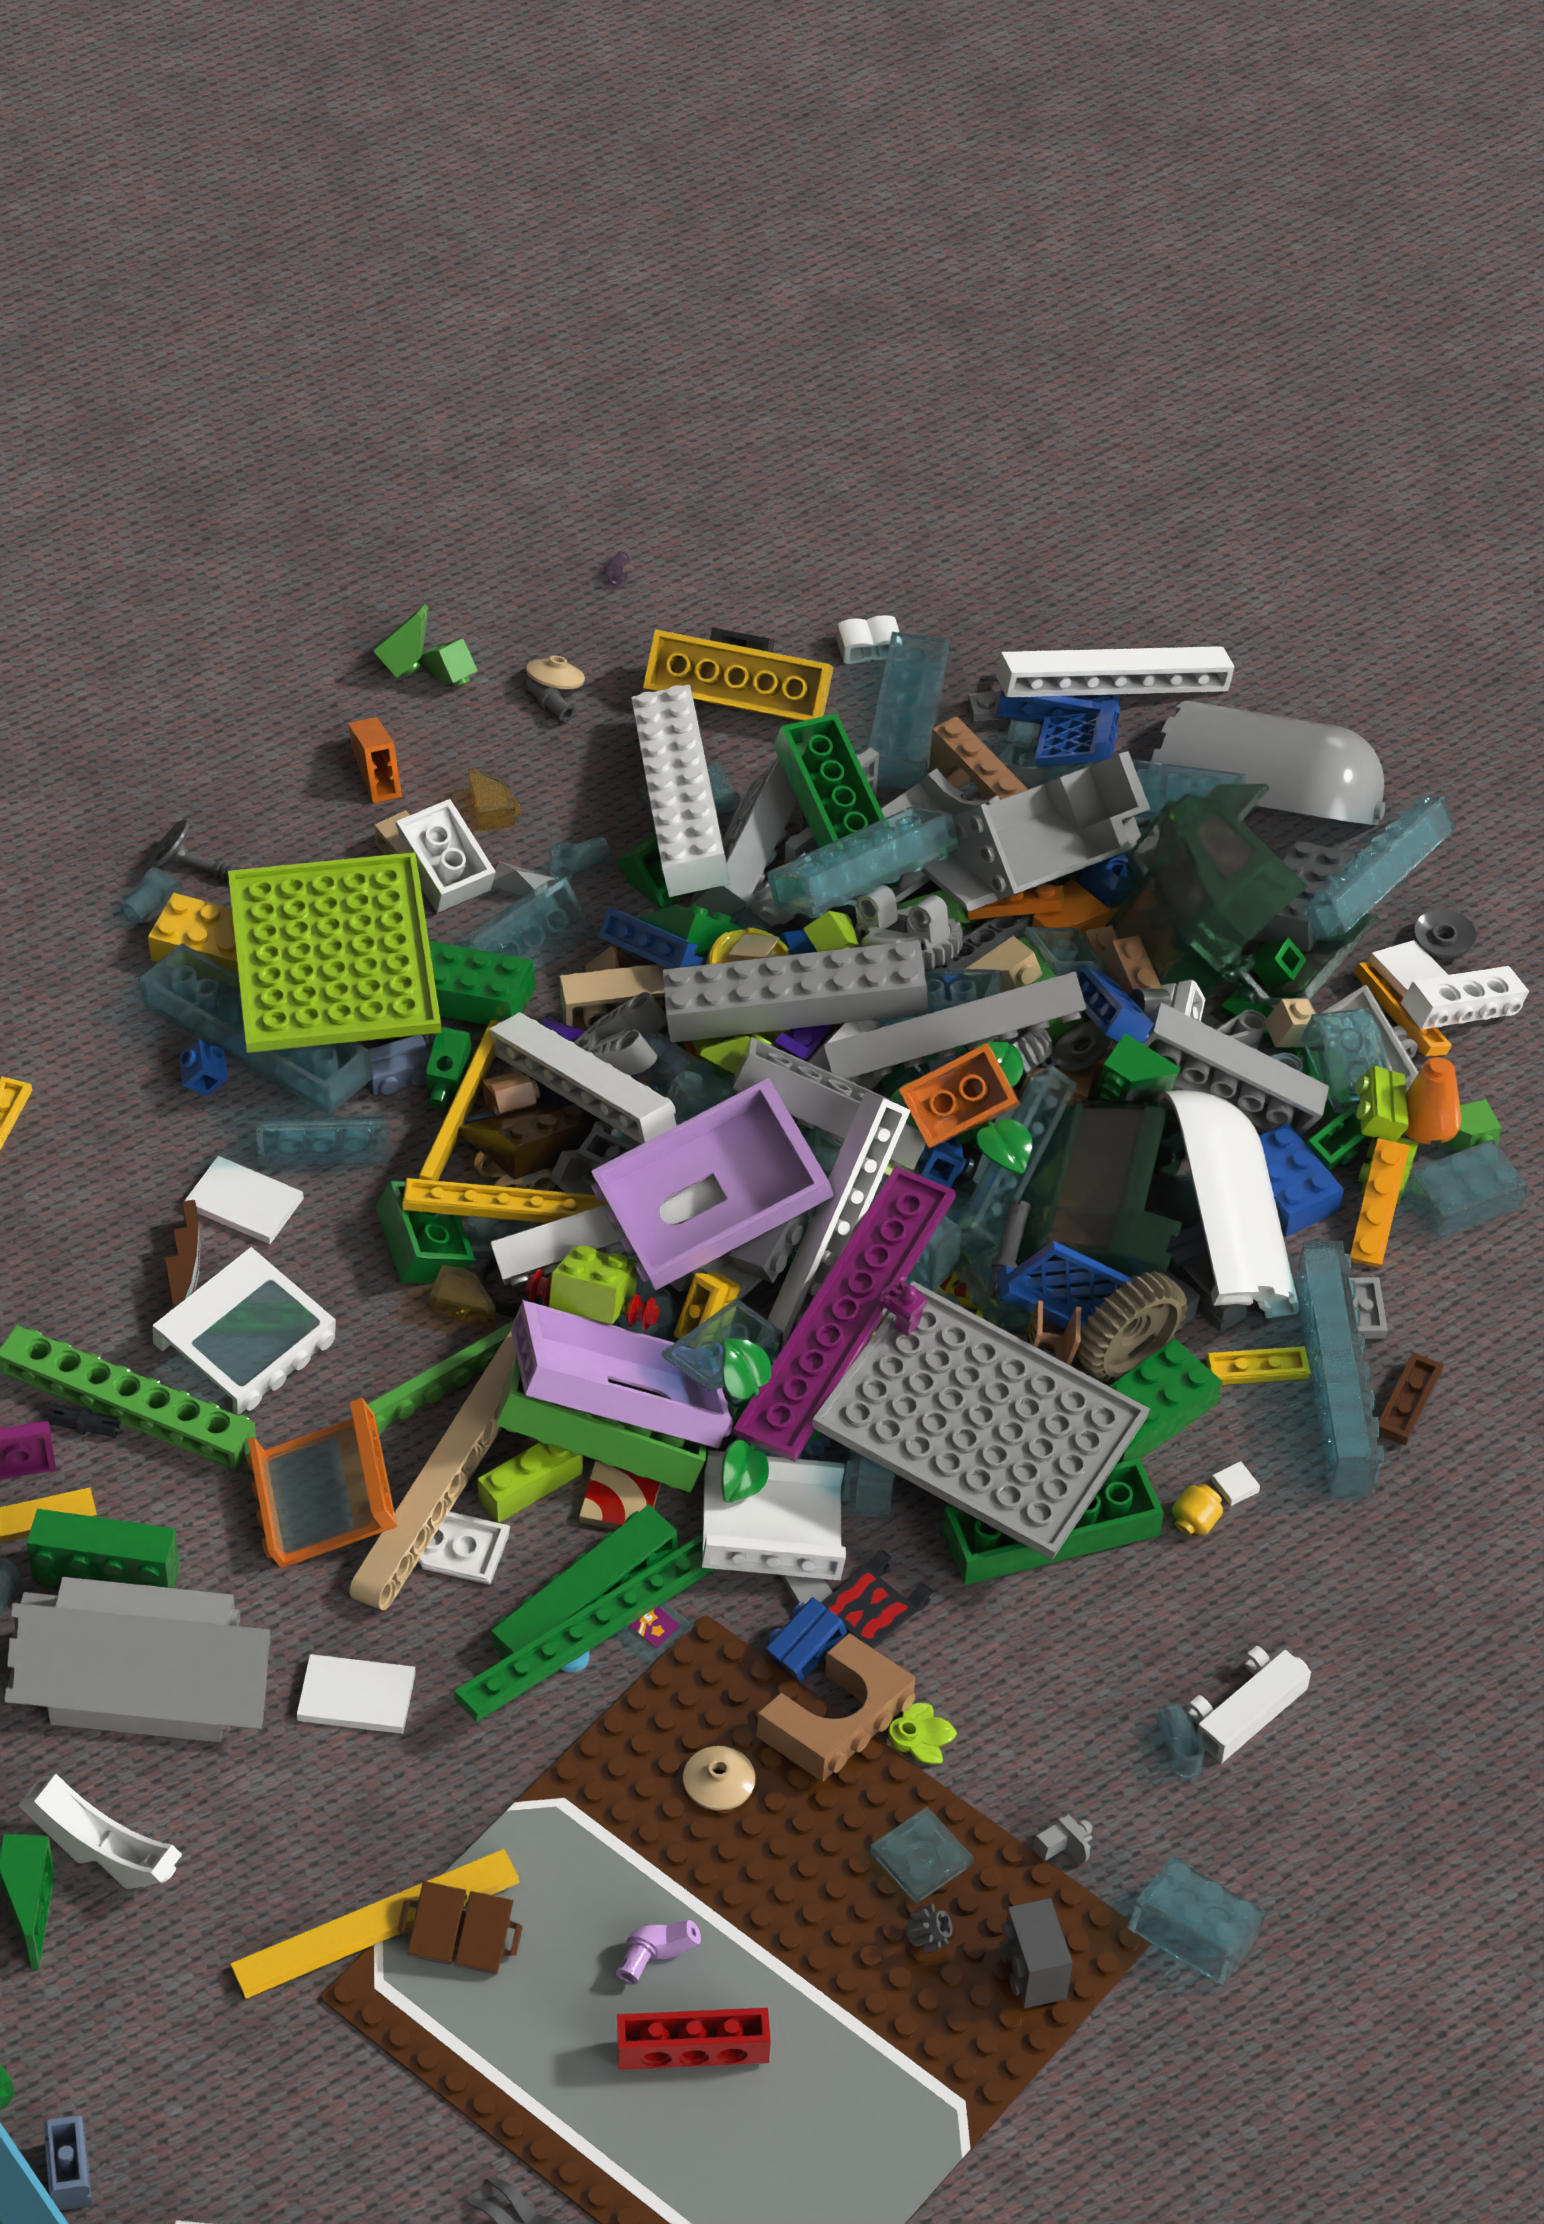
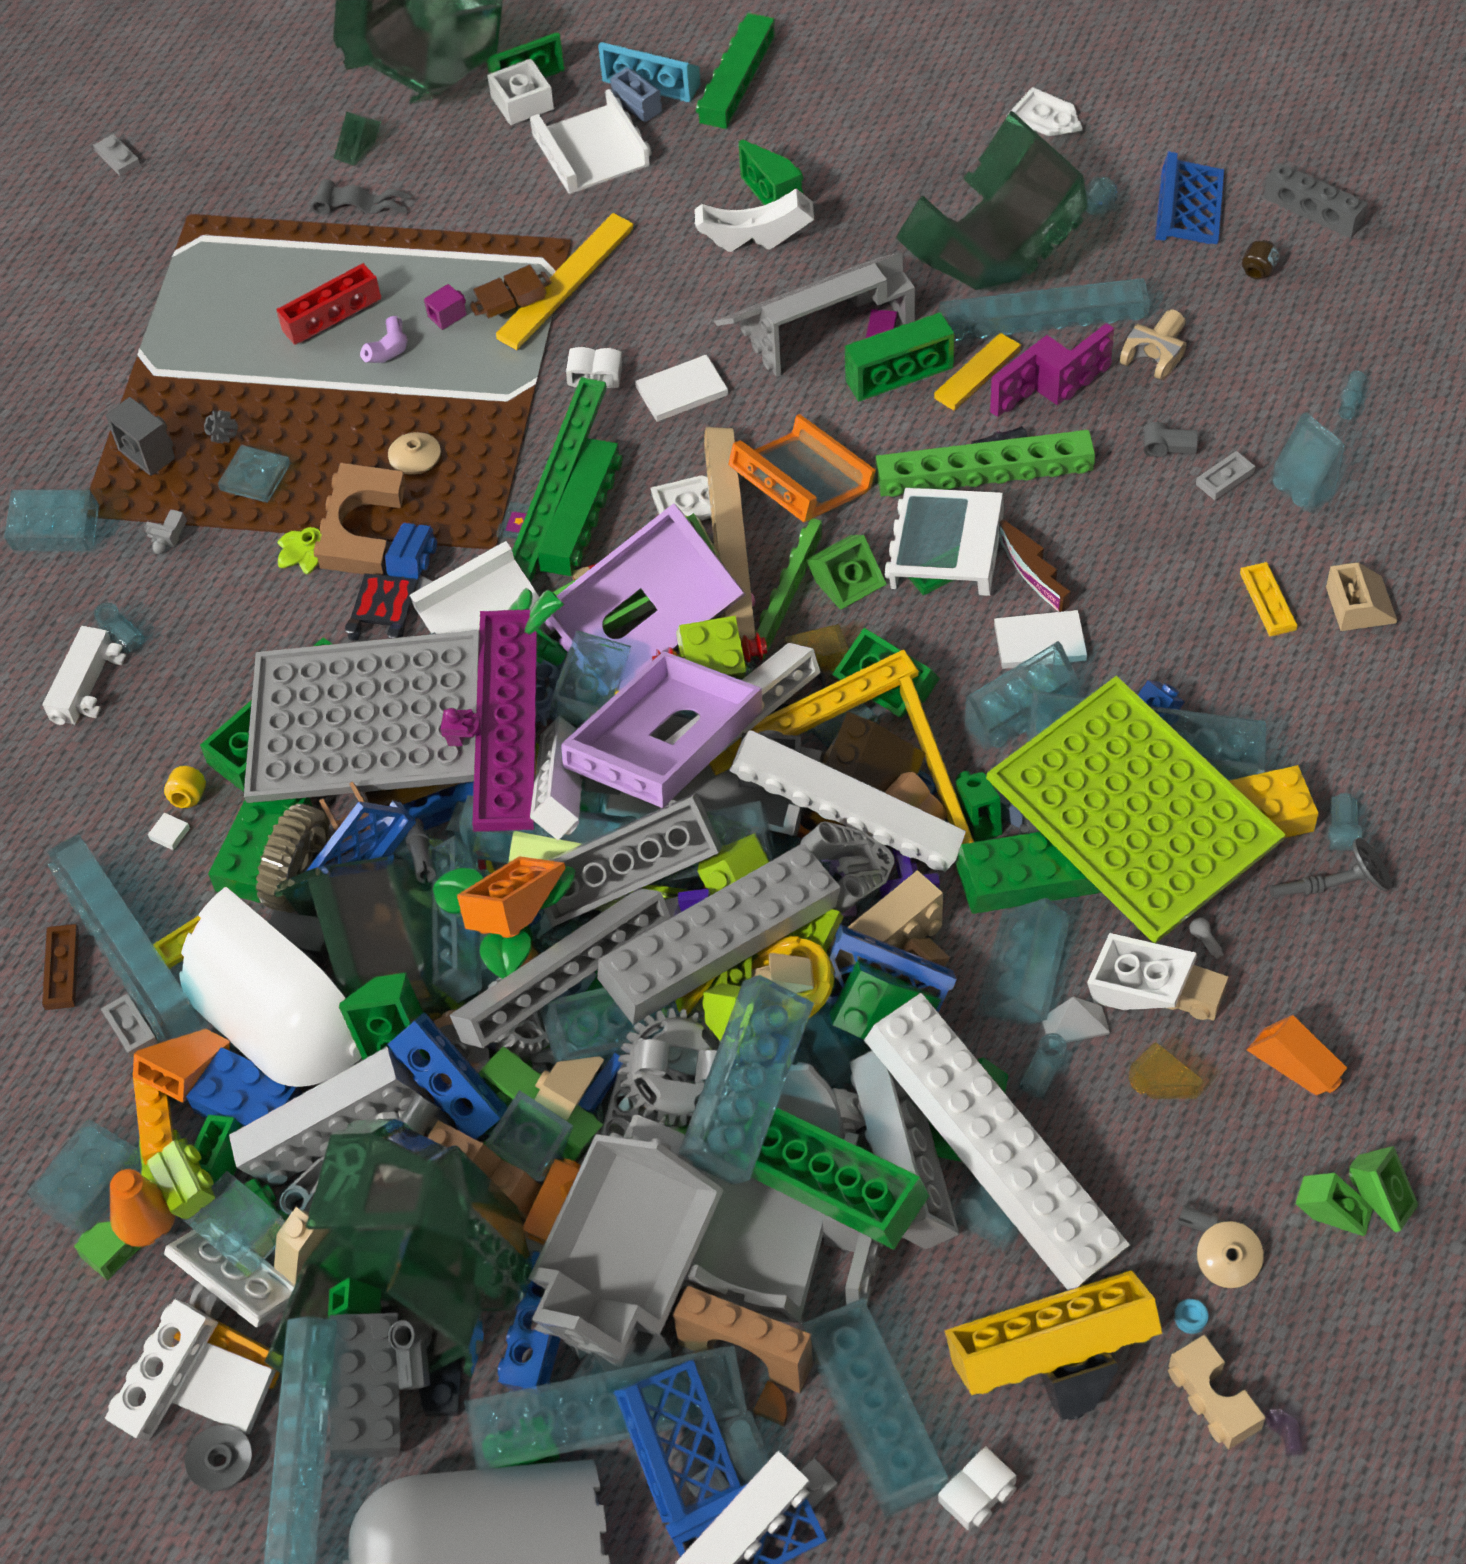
camera: 155 degrees right, 5 degrees up
(179, 2138) = (592, 145): none -> white panel
(367, 1366) = (846, 570): none -> bright green slope
(436, 1770) = (594, 364): none -> white brick
(549, 1958) = (445, 306): none -> magenta brick
(618, 661) = (1191, 1316): none -> medium azure tile
(649, 590) = (1229, 1417): none -> tan arch
(1331, 1217) = (177, 1063): none -> orange slope

